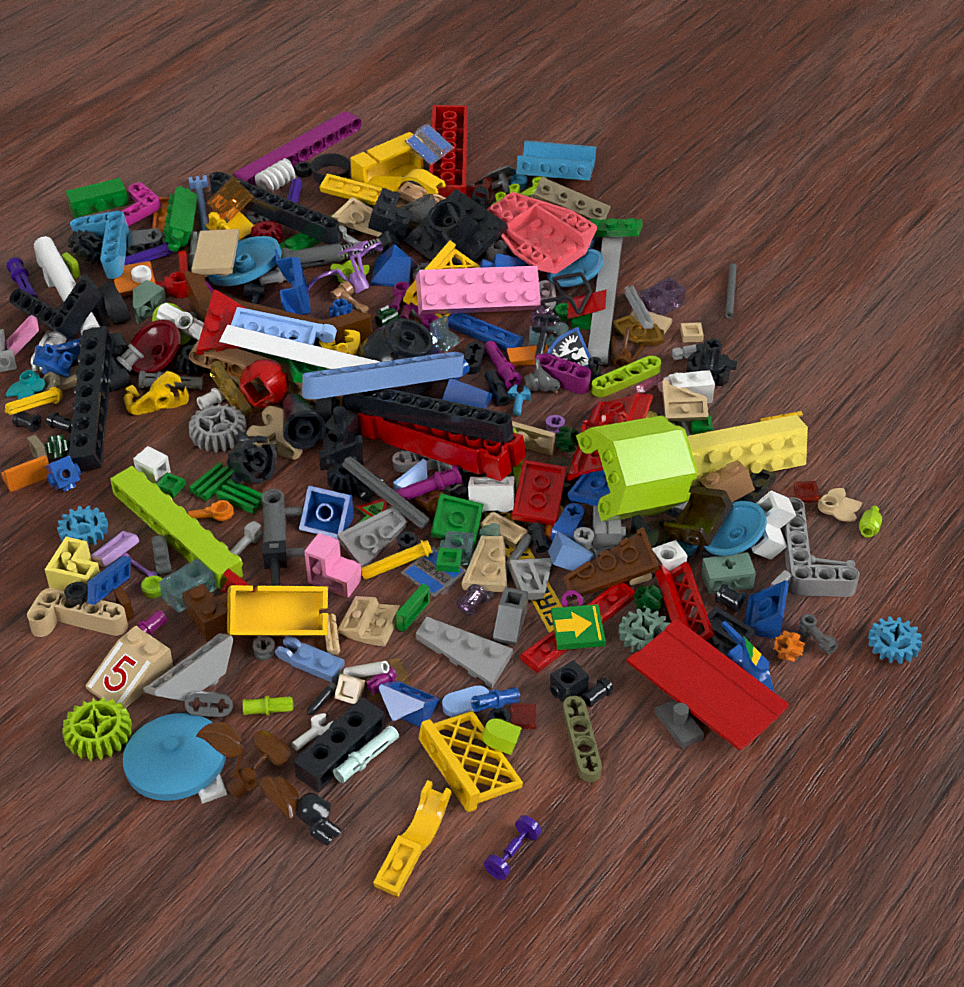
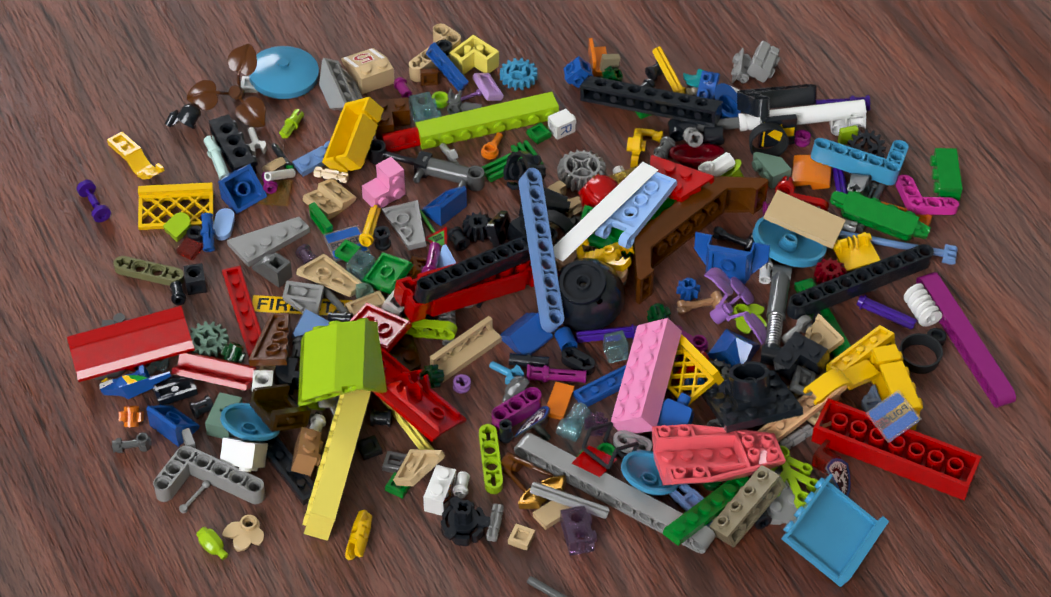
camera: 115 degrees right, 5 degrees up
(22, 334) = (757, 82): bright pink tile -> none
(82, 724) = (329, 41): lime gear -> none
(141, 273) = (805, 171): white tile -> none
(208, 697) = (309, 93): dark grey beam -> none
(230, 199) = (877, 249): clear orange panel -> none
(386, 492) = (438, 235): dark grey axle -> none
(480, 200) = (804, 446): black piece -> none
(544, 332) = (567, 408): black piece -> none
(578, 627) = (237, 301): green tile -> none
(579, 598) = (265, 311): magenta bush -> none
(647, 386) = (453, 449): clear pink tile -> none
(807, 491) = (275, 520): clear red tile -> none
(907, 641) = (89, 487): dark azure gear -> none

